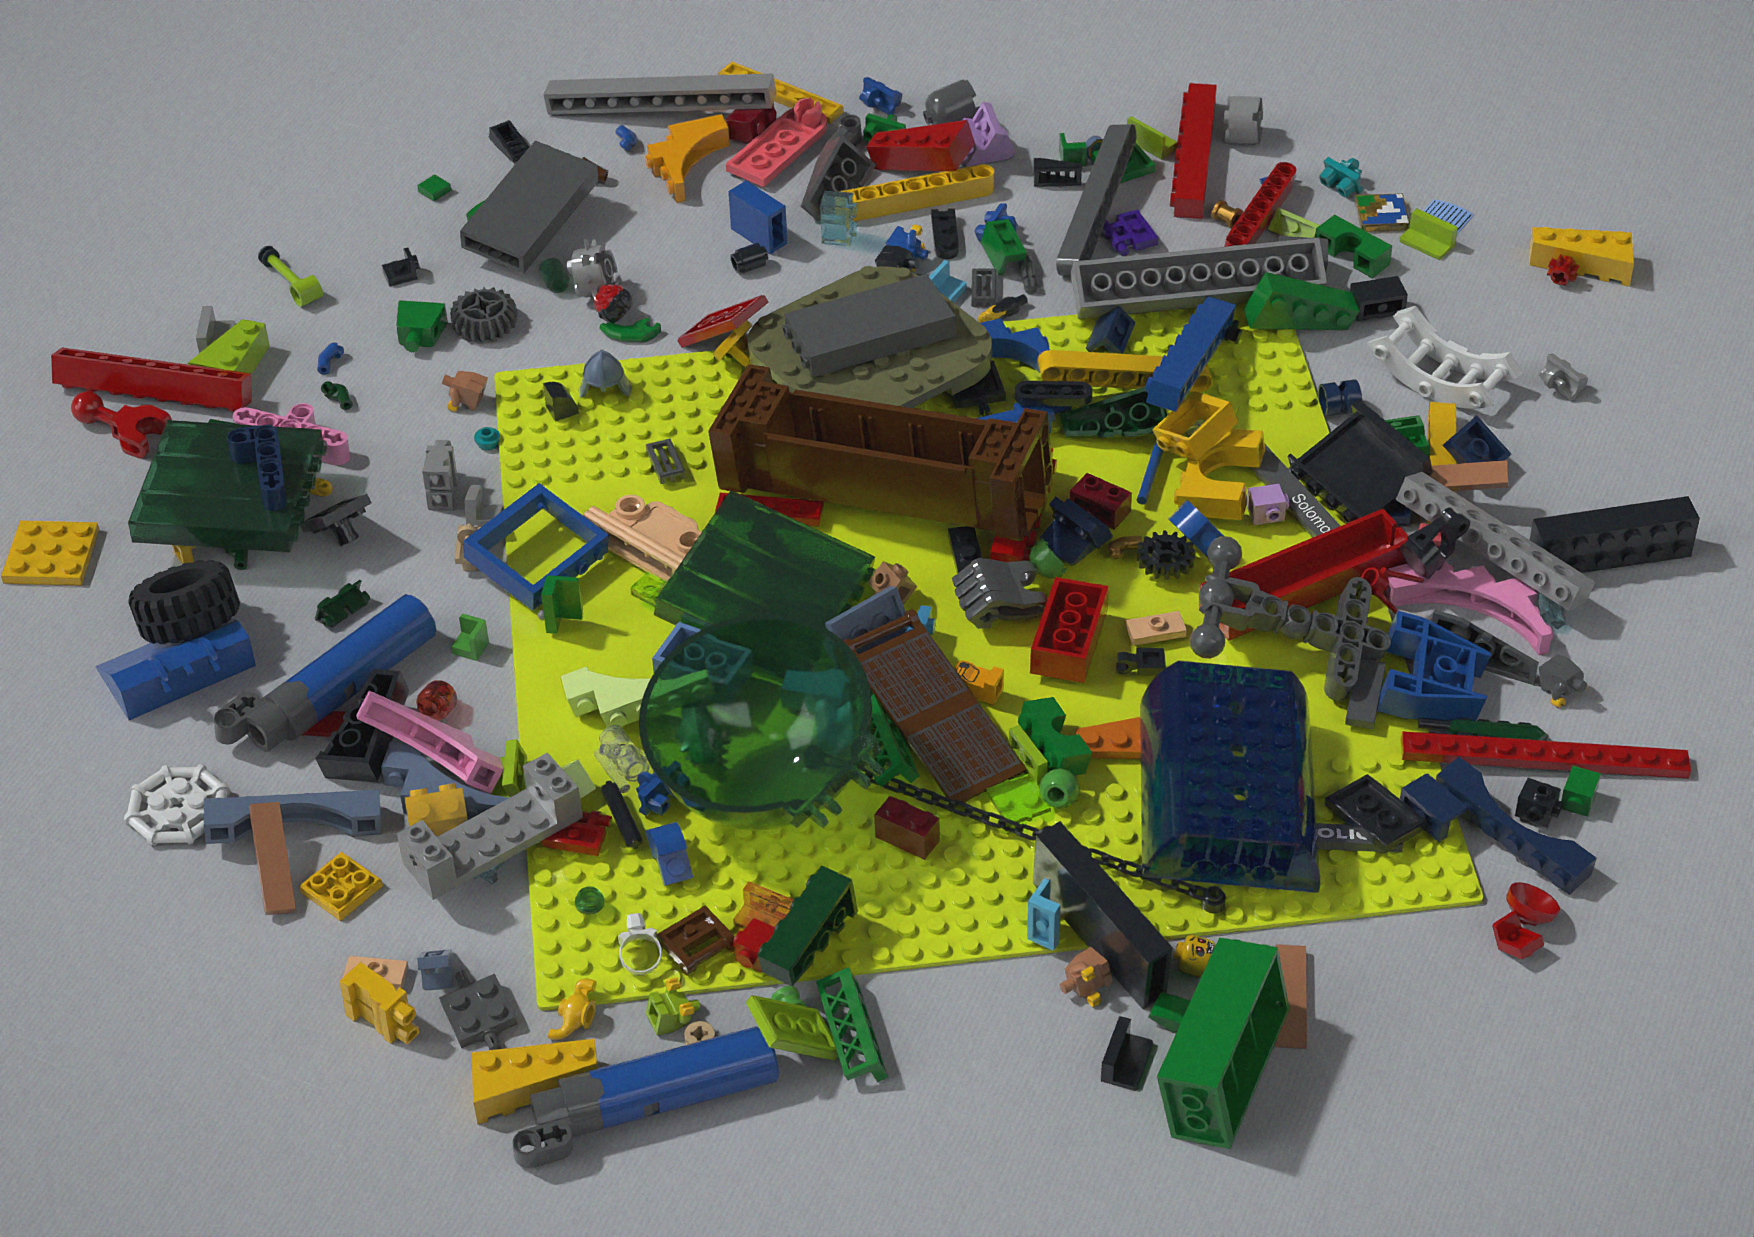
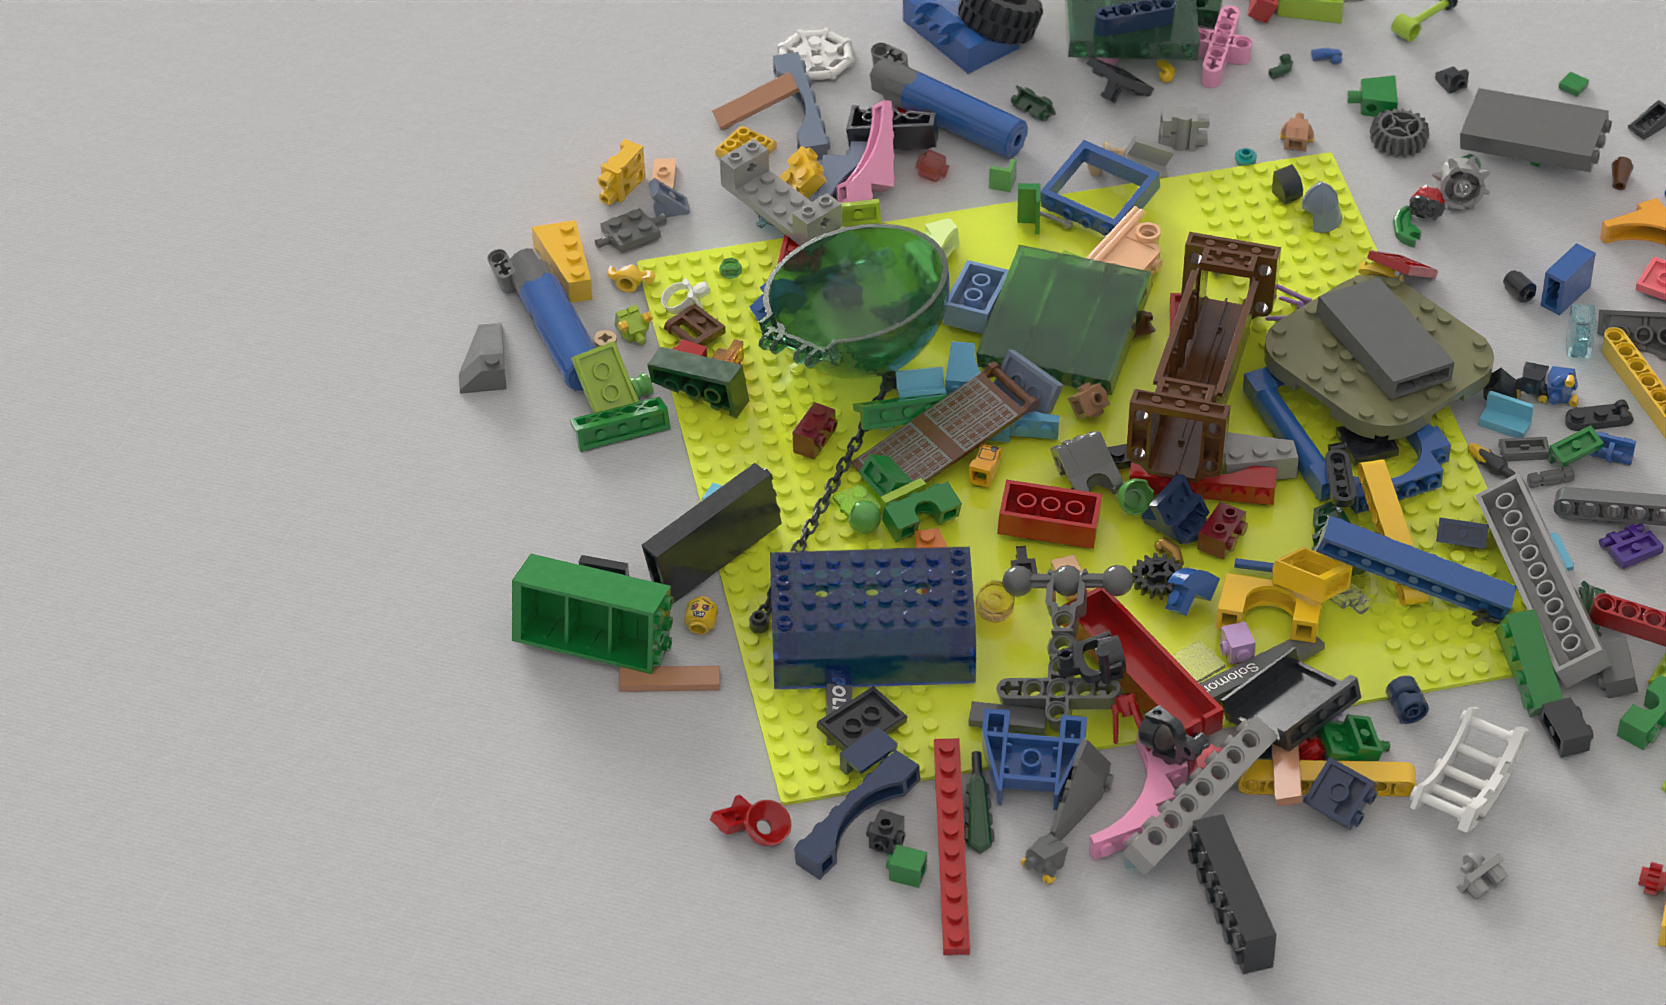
camera: 85 degrees right, 0 degrees up
(706, 1172) = (484, 361): none -> dark grey wedge
(996, 765) = (883, 474): none -> green panel
(1278, 538) = (1199, 661): none -> clear piece
(1327, 575) = (1110, 657): none -> black piece

